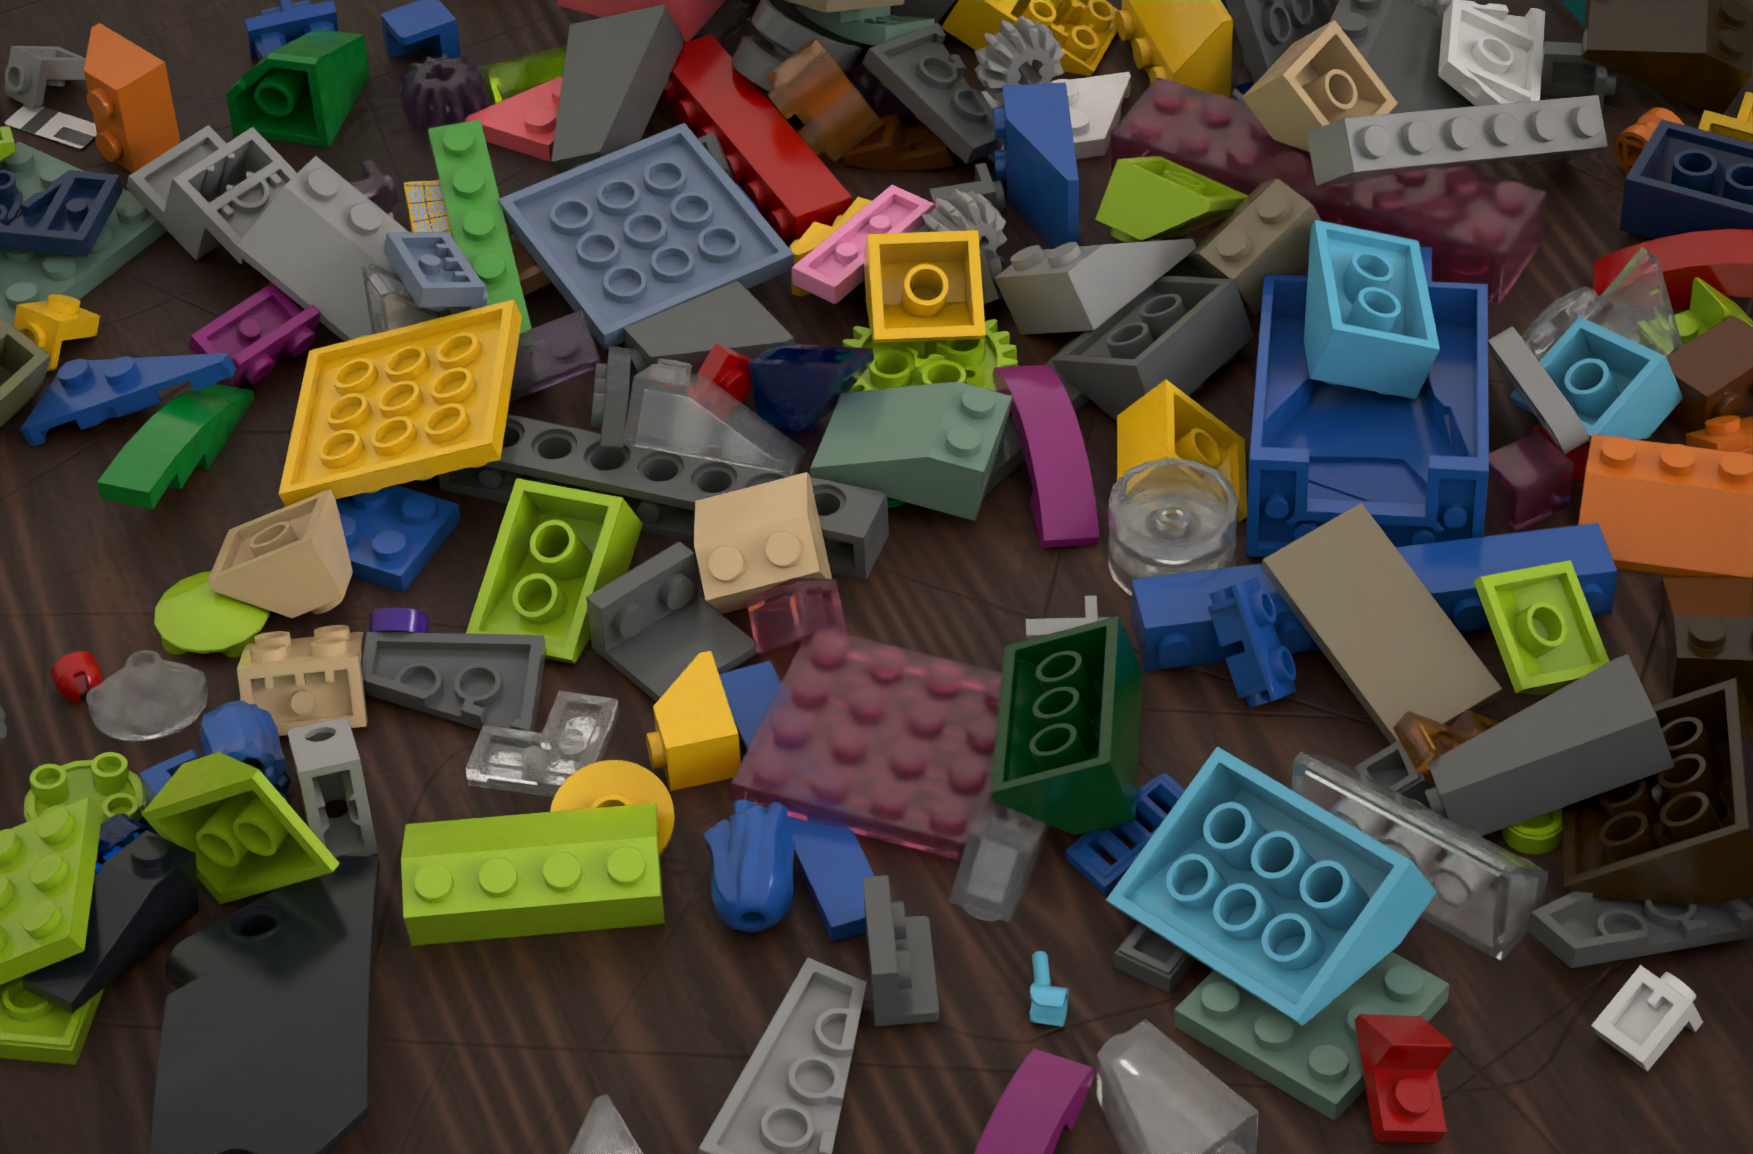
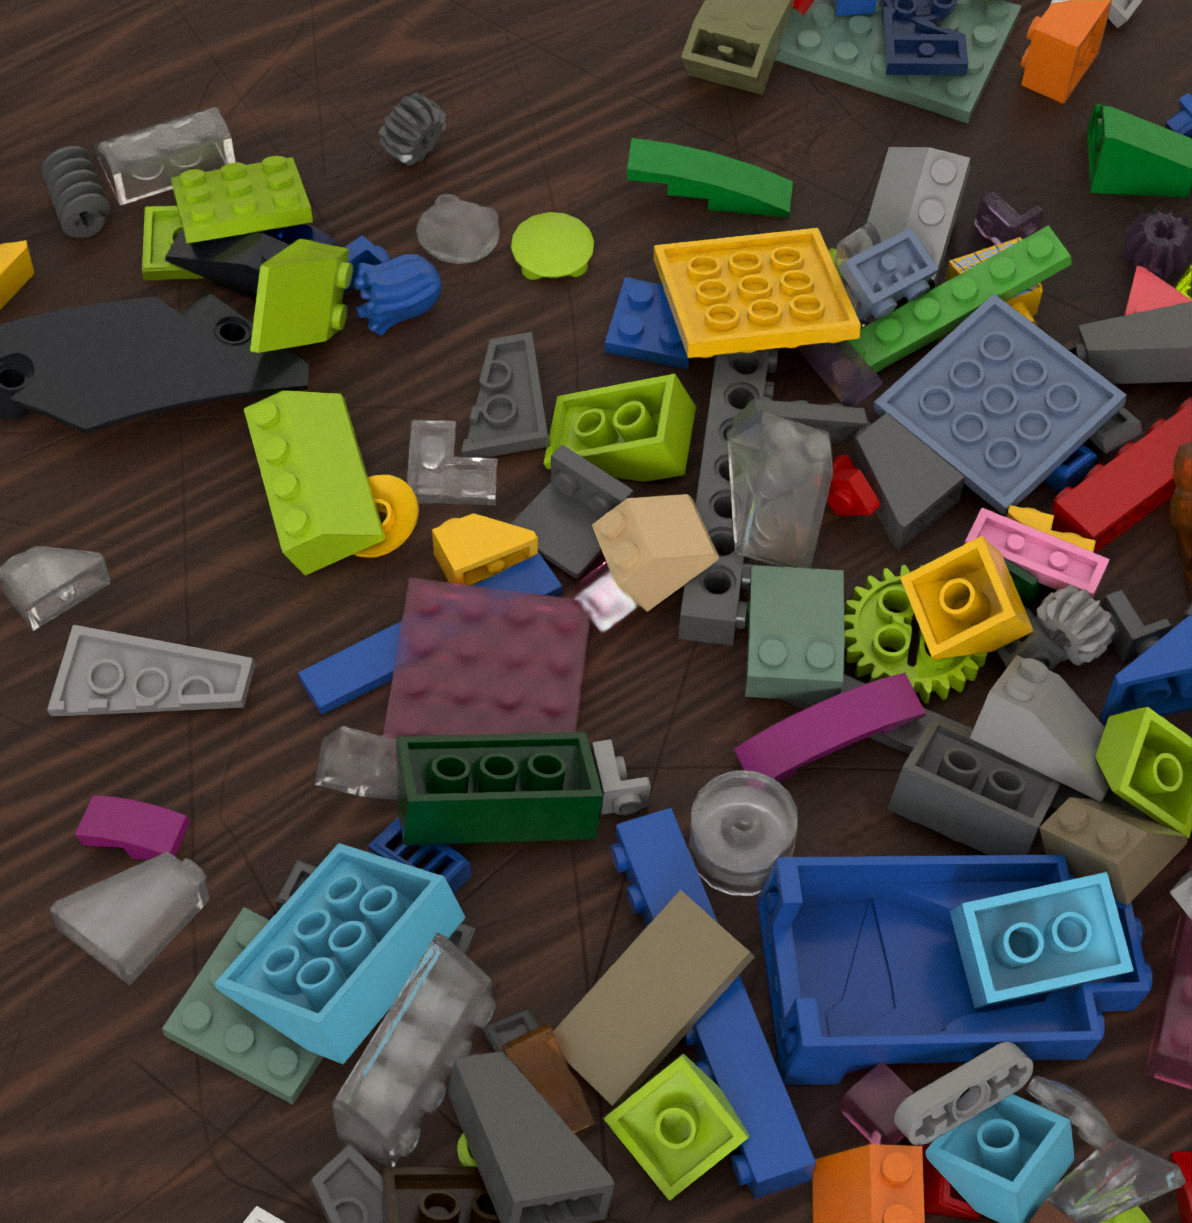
camera: 75 degrees right, 15 degrees up
(55, 321) = (820, 78): yellow bracket -> none
(76, 675) = (470, 187): red hinge -> none
(102, 779) = (358, 213): lime dish -> none
(116, 387) = (756, 128): blue wing -> none
(211, 188) = (980, 123): light grey bracket -> none
(258, 334) = (834, 194): magenta bracket -> none
(287, 559) = (597, 268): tan slope -> none
(305, 677) = (487, 301): tan bracket -> none
(330, 770) = (375, 344): light grey torso -> none
(398, 620) = (550, 351): dark purple tile -> none
(752, 866) = (334, 608): blue piece -> none
(804, 382) = (855, 540): clear blue slope -> none
(898, 959) = (264, 713): dark grey bracket -> none
(1048, 1001) = (247, 819): medium azure hand -> none
(1175, 426) = (846, 818): yellow slope -> none
(1248, 615) = (619, 908): blue hinge -> none
(1401, 1077) = (186, 1067): red slope -> none

